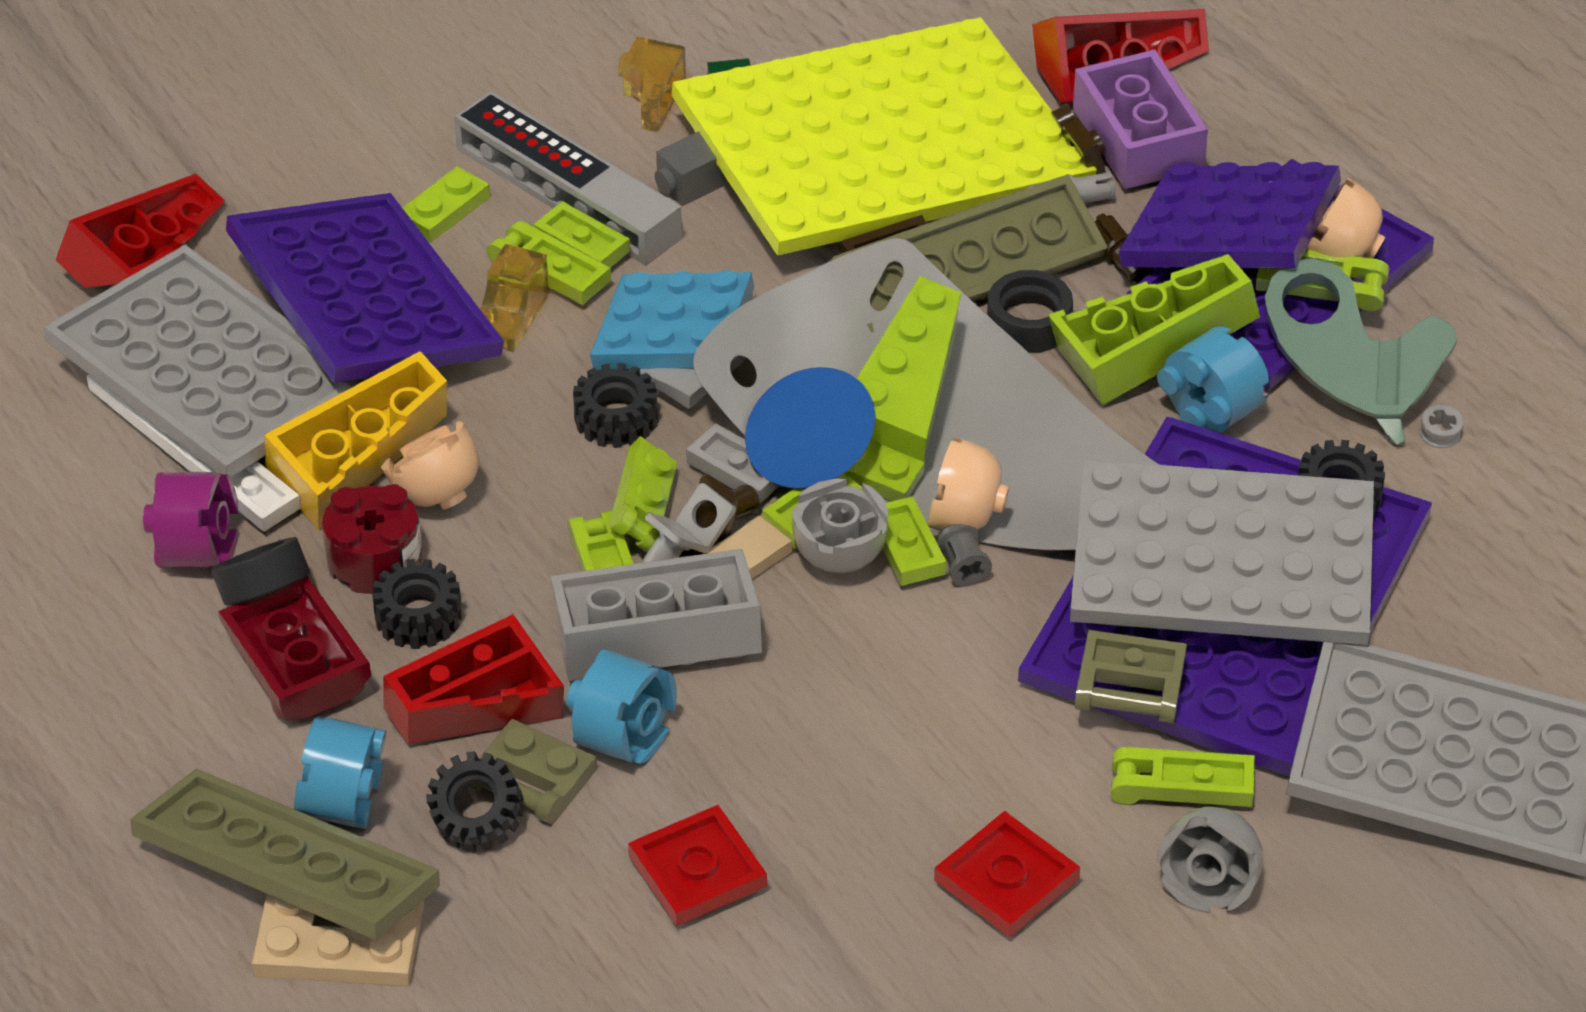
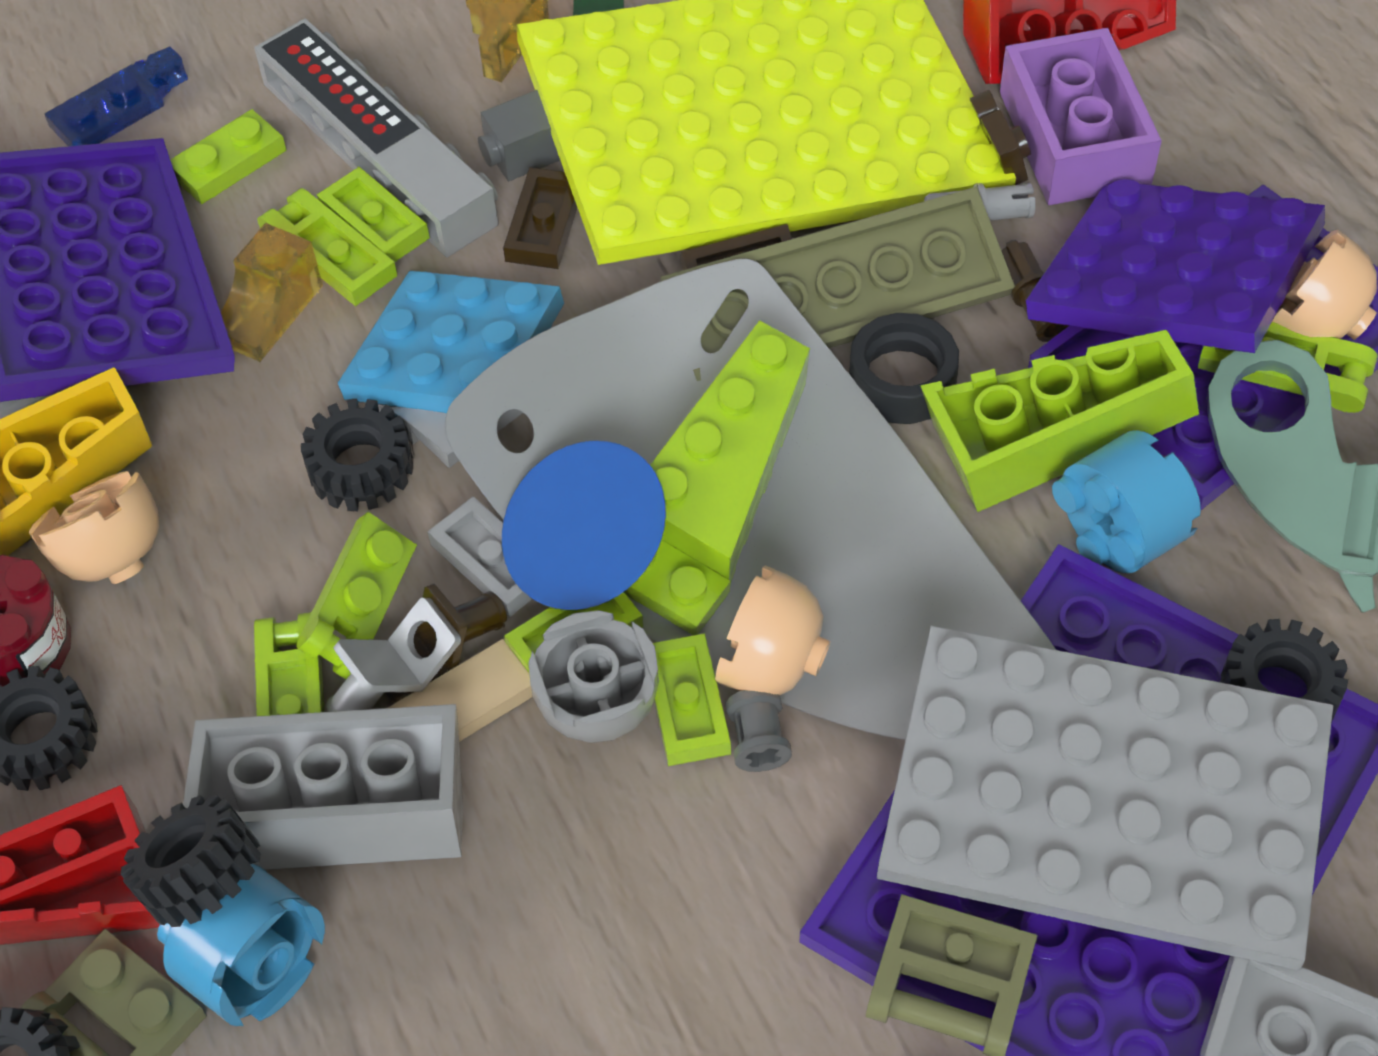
camera: 10 degrees right, 10 degrees up
(338, 168) = (118, 100): none -> clear blue hinge
(585, 644) = (191, 861): none -> black tyre
(721, 229) = (541, 220): none -> dark brown plate

